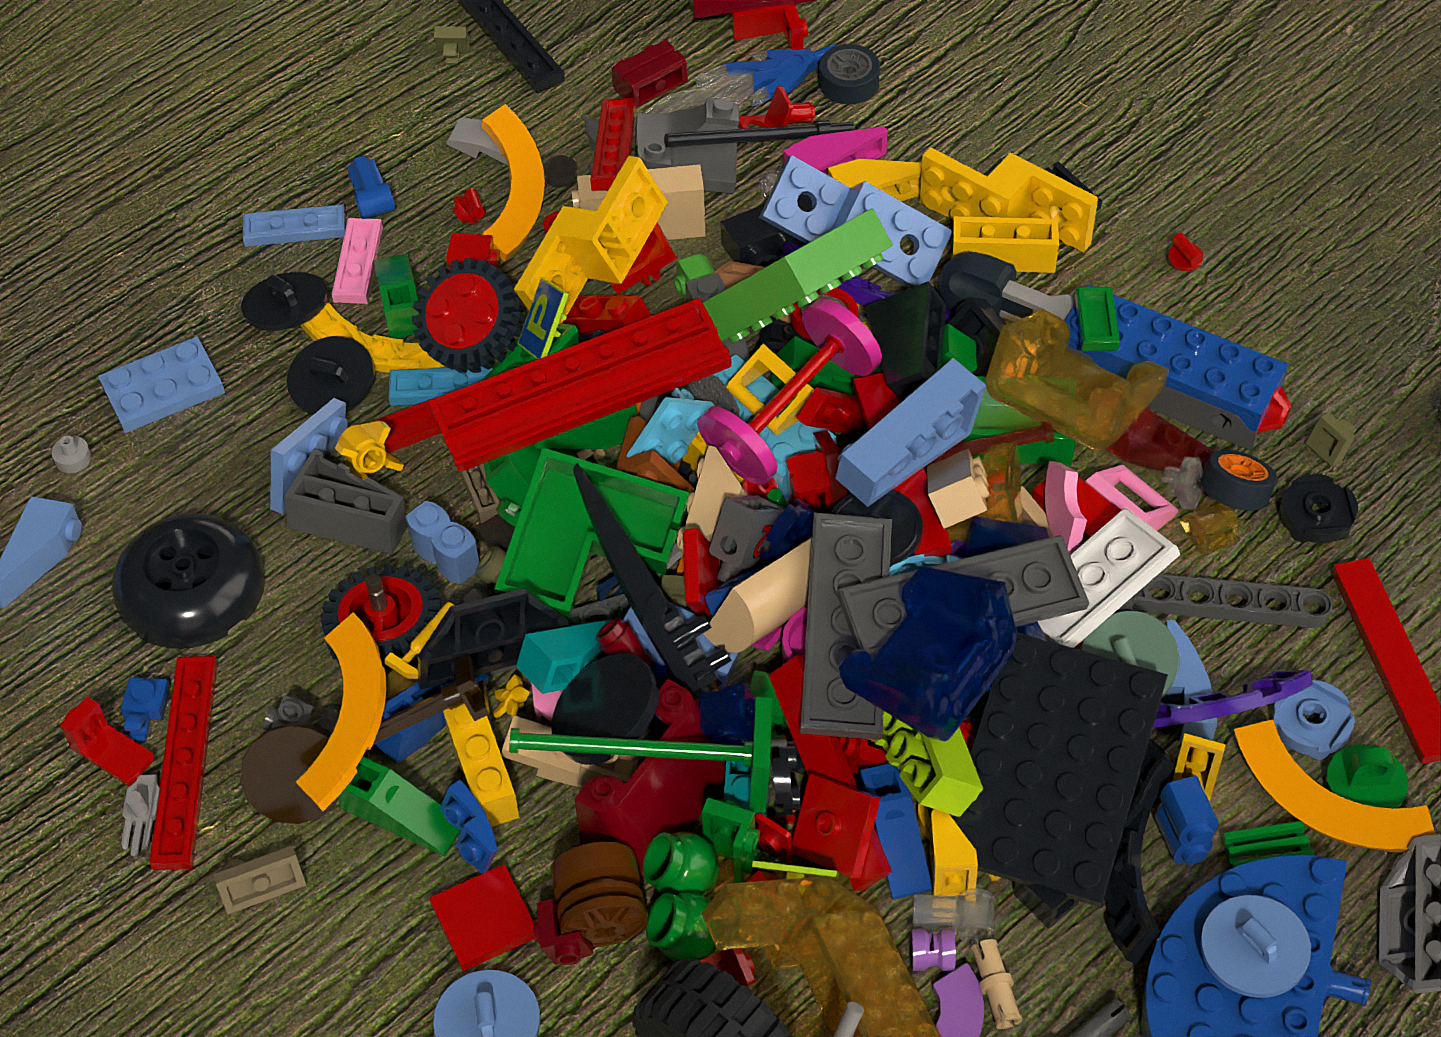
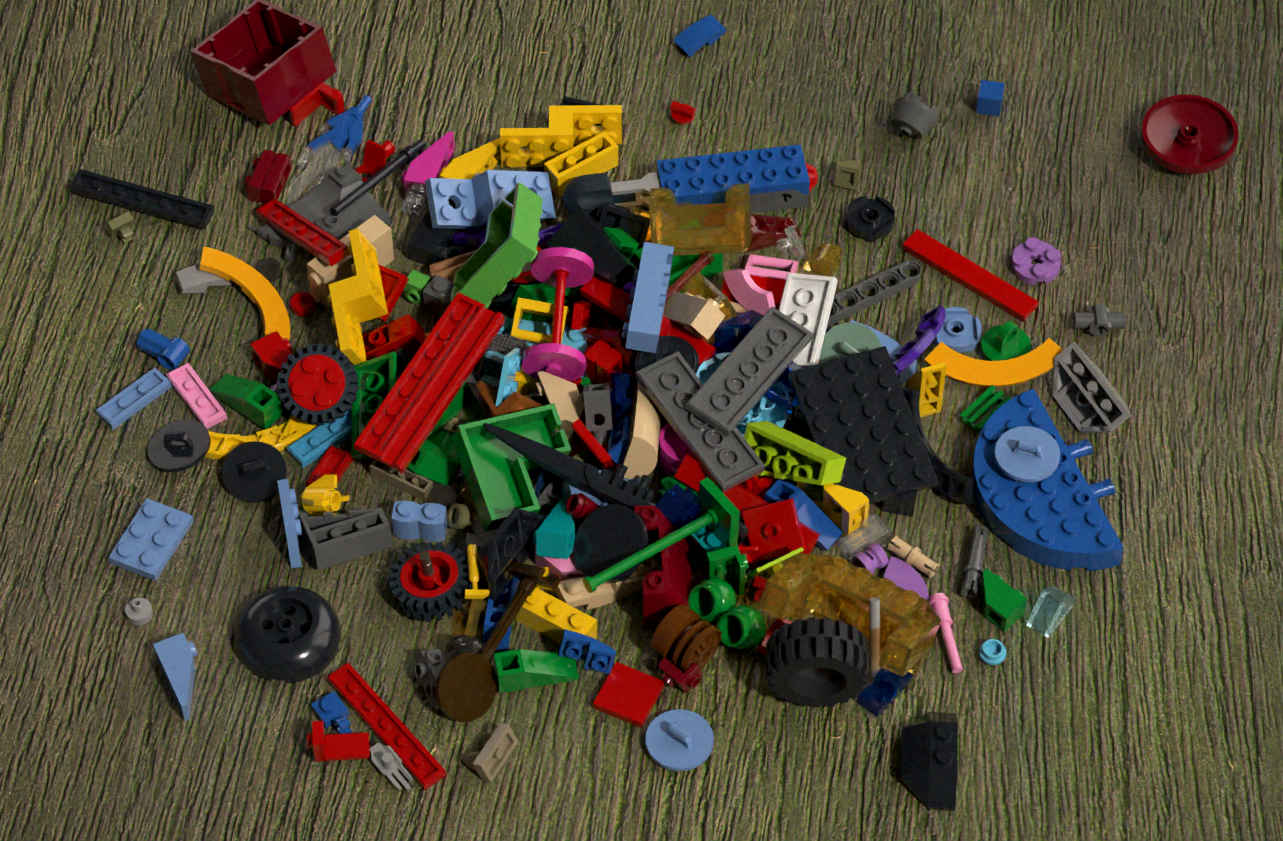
camera: 40 degrees left, 0 degrees up
(359, 715) = (481, 625): light orange tile -> none
(468, 207) = (238, 323): red plate -> none
(509, 511) = (449, 480): green tile -> none
(543, 319) = (375, 358): piece -> none
(849, 74) = (391, 109): black wheel -> none
(940, 655) = (768, 401): clear blue windscreen -> none
(1097, 319) = (682, 177): green tile -> none
(1186, 820) = (942, 418): blue brick -> none
(1238, 480) = (820, 225): black wheel -> none
(1294, 176) = (698, 34): none -> blue slope

